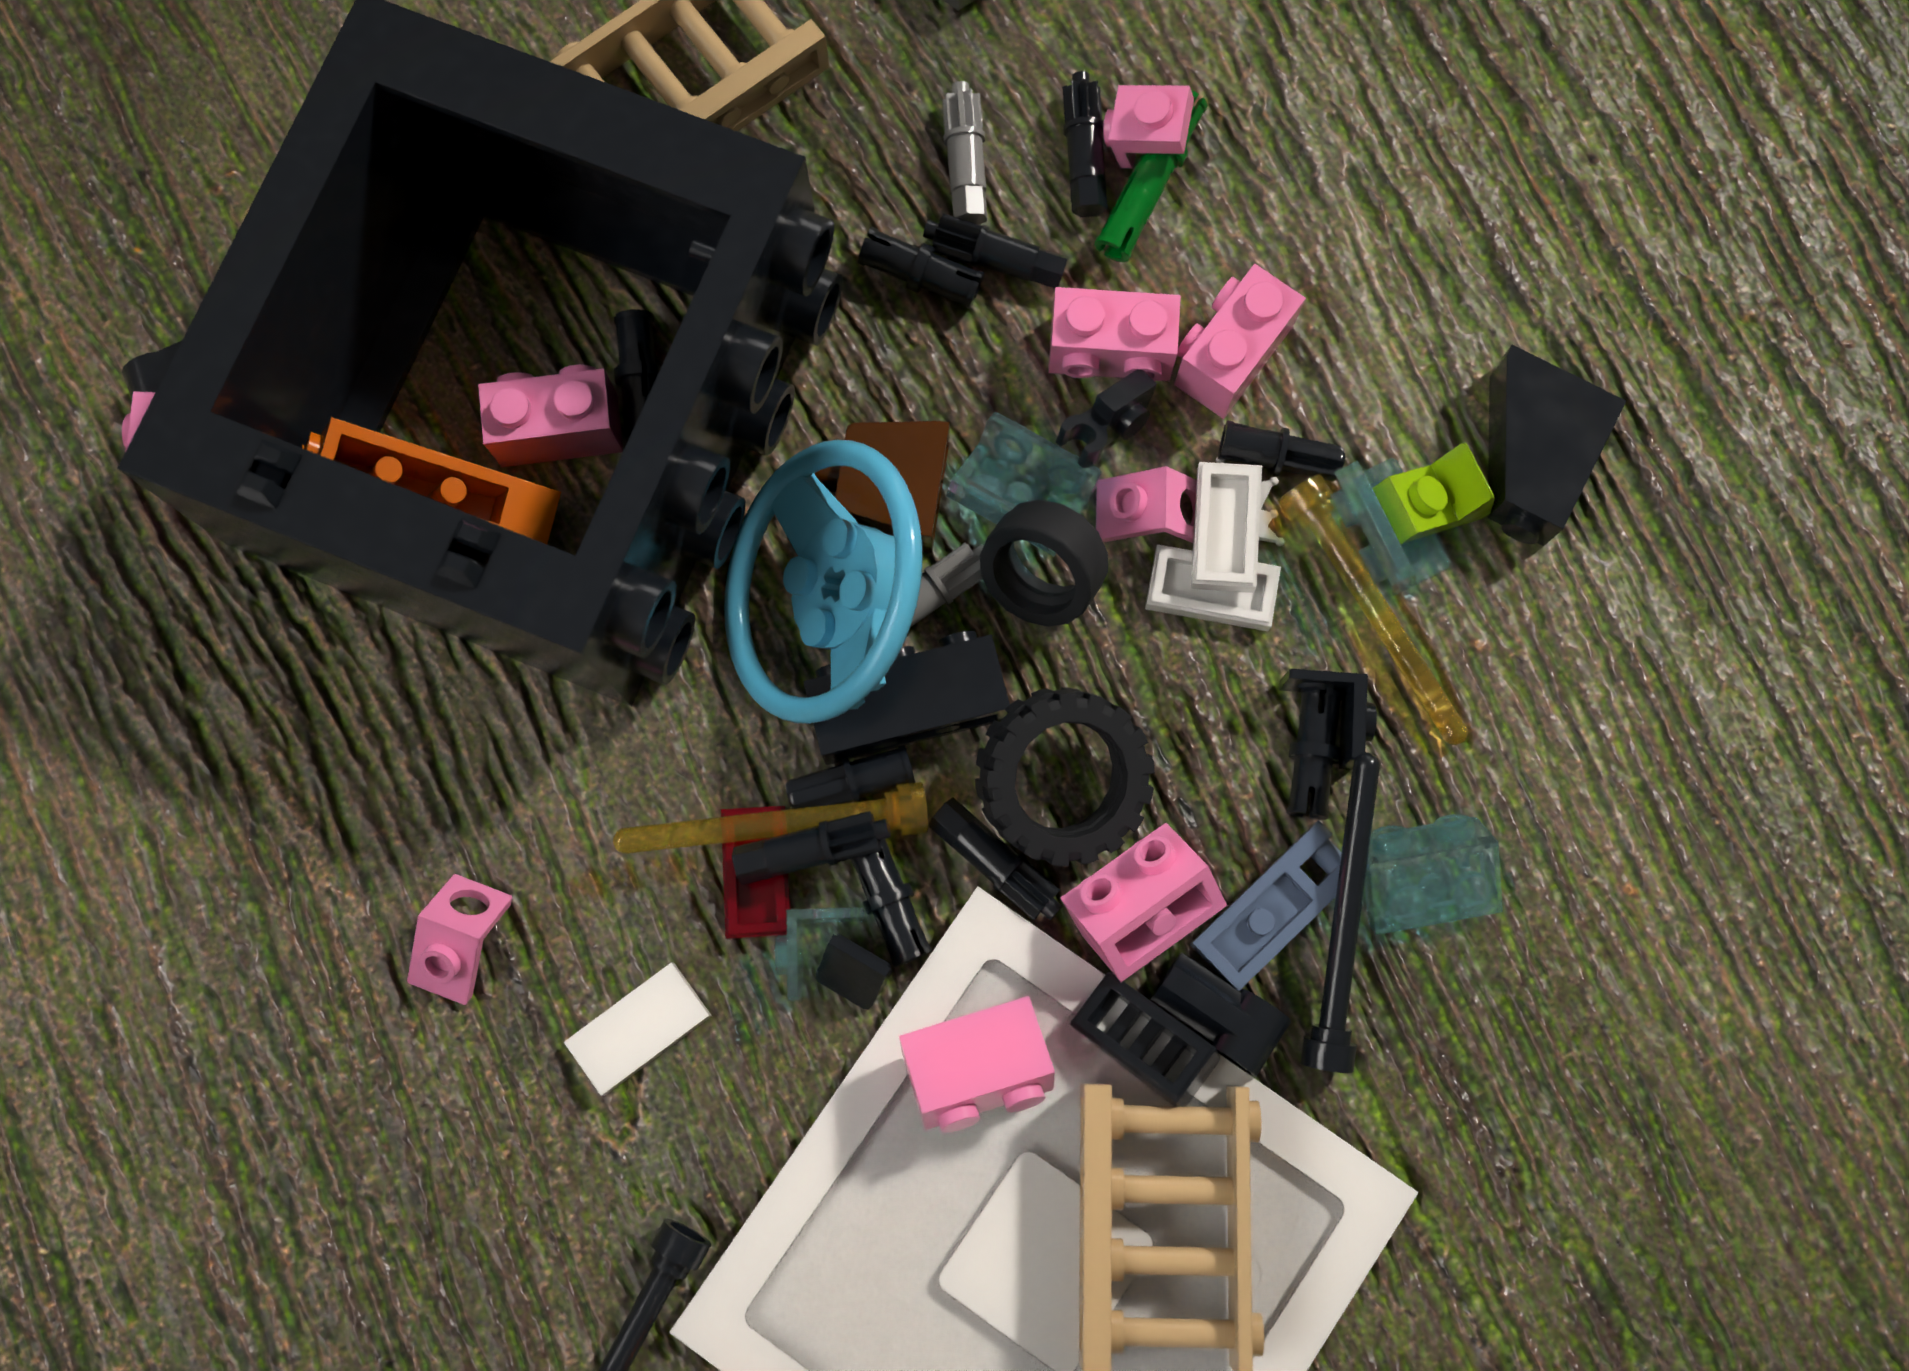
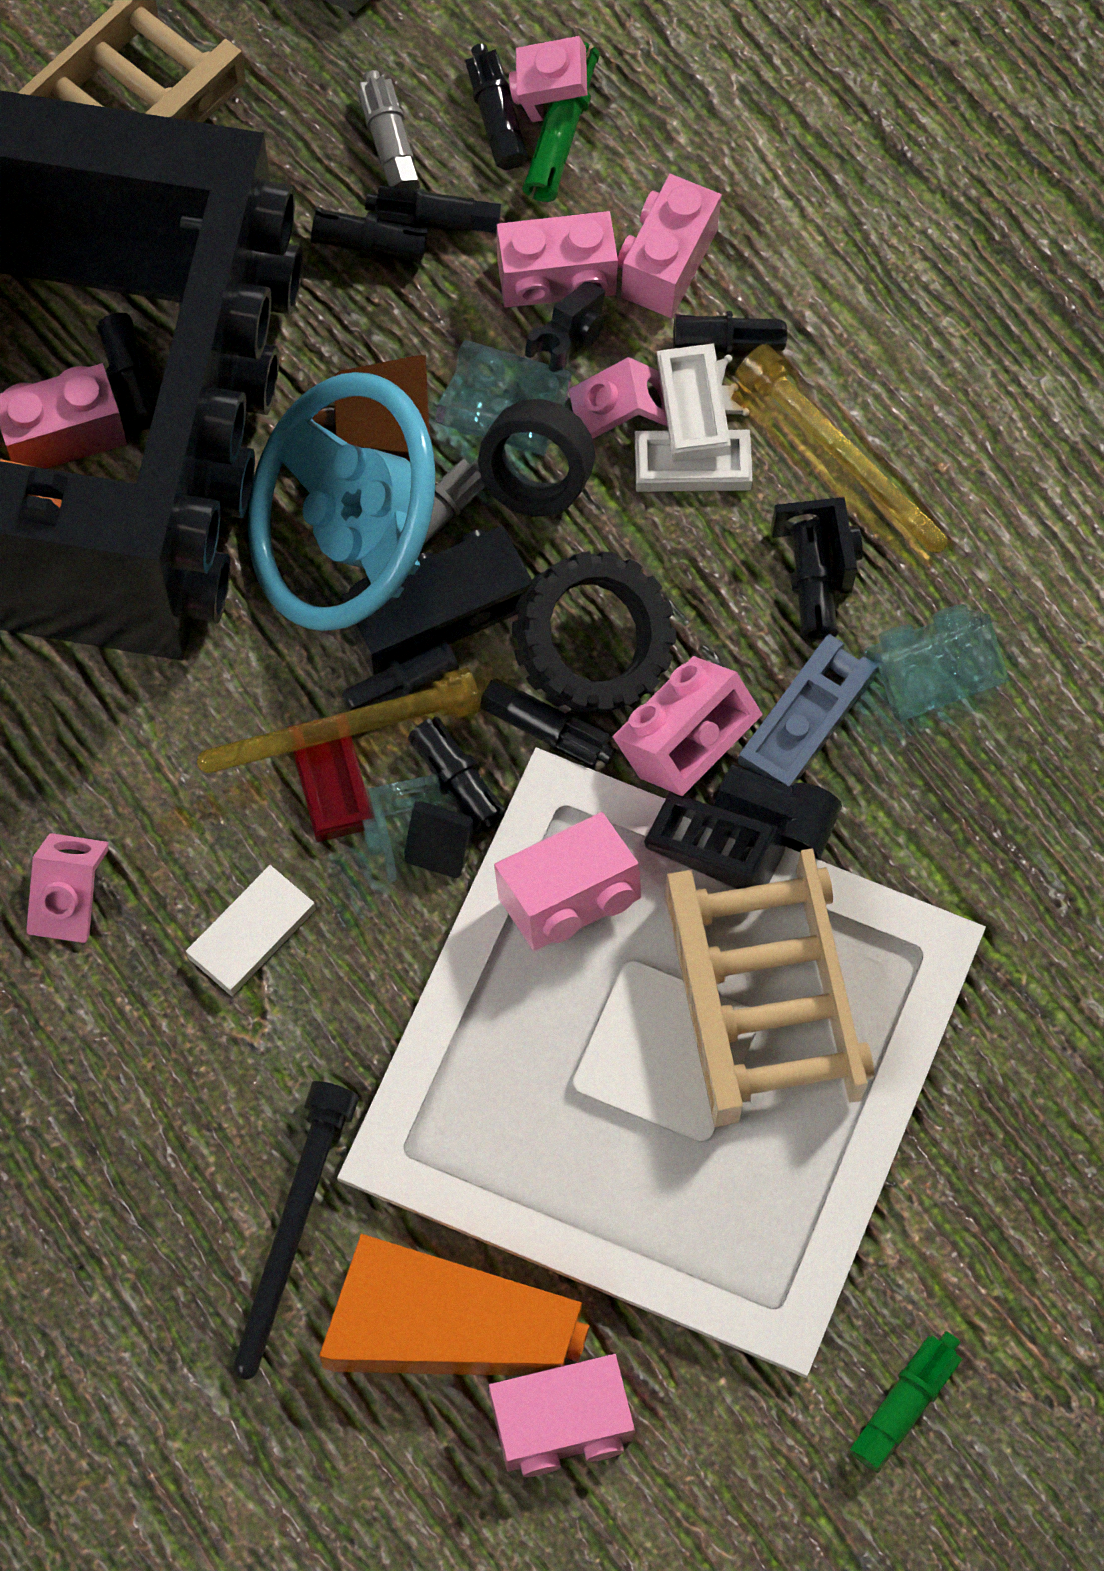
camera: 15 degrees left, 10 degrees down
(811, 847) = (378, 735): black piece -> none
(1330, 1041) = (880, 815): black piece -> none
(1384, 557) = (839, 372): clear light blue bracket -> none
(1436, 496) = (876, 342): lime slope -> none
(1542, 443) = (957, 282): black slope -> none

